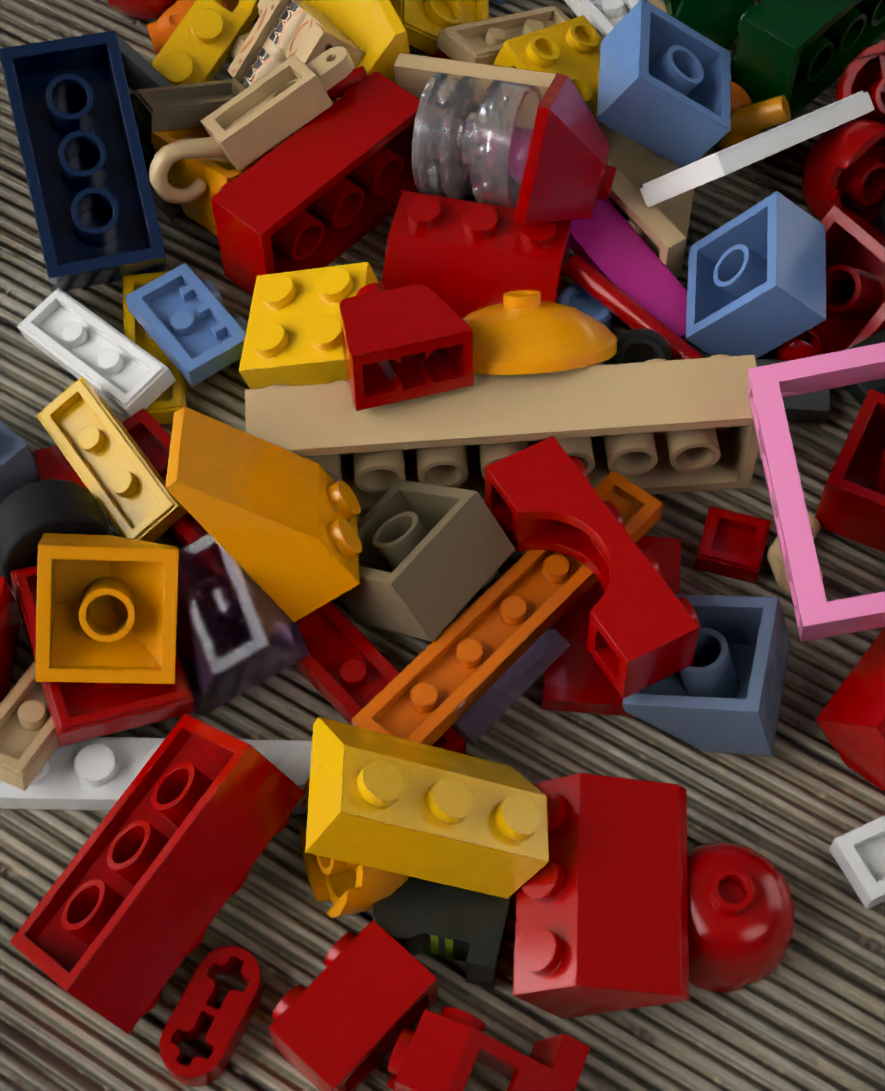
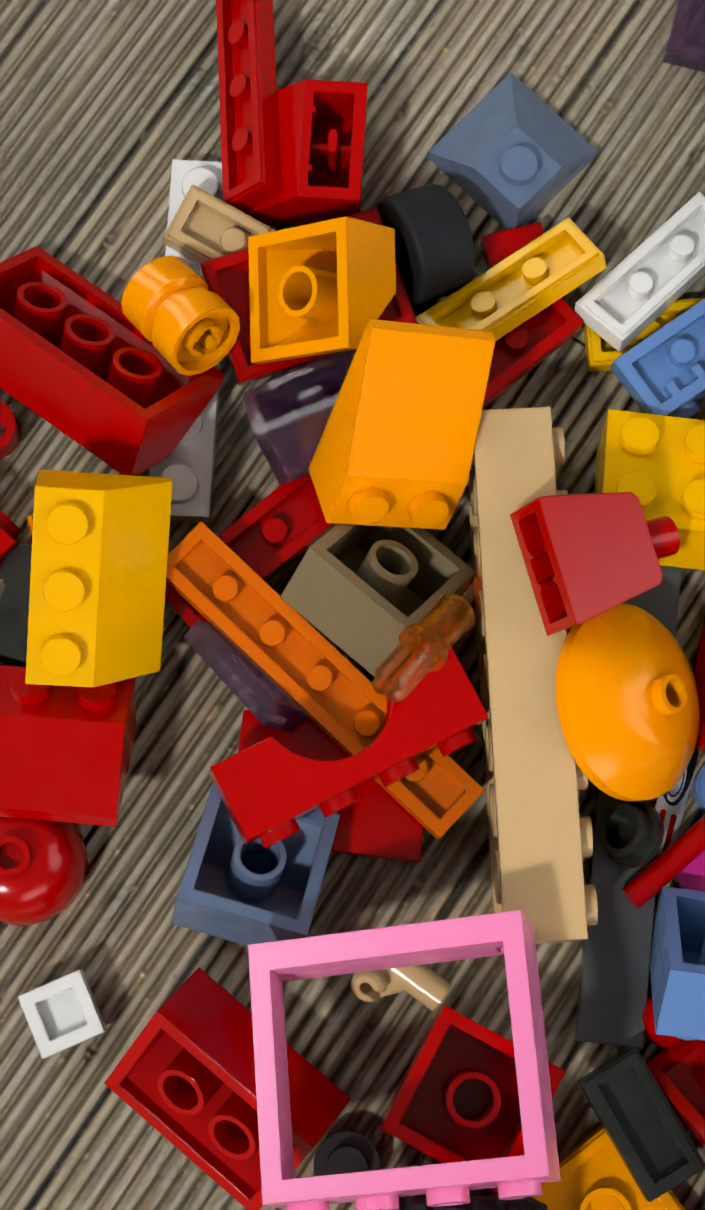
camera: 90 degrees right, 20 degrees up
(111, 753) = (180, 315): none -> light orange wheel
(494, 475) = (423, 647): none -> clear orange axle
(732, 544) = (419, 903): red tile -> none

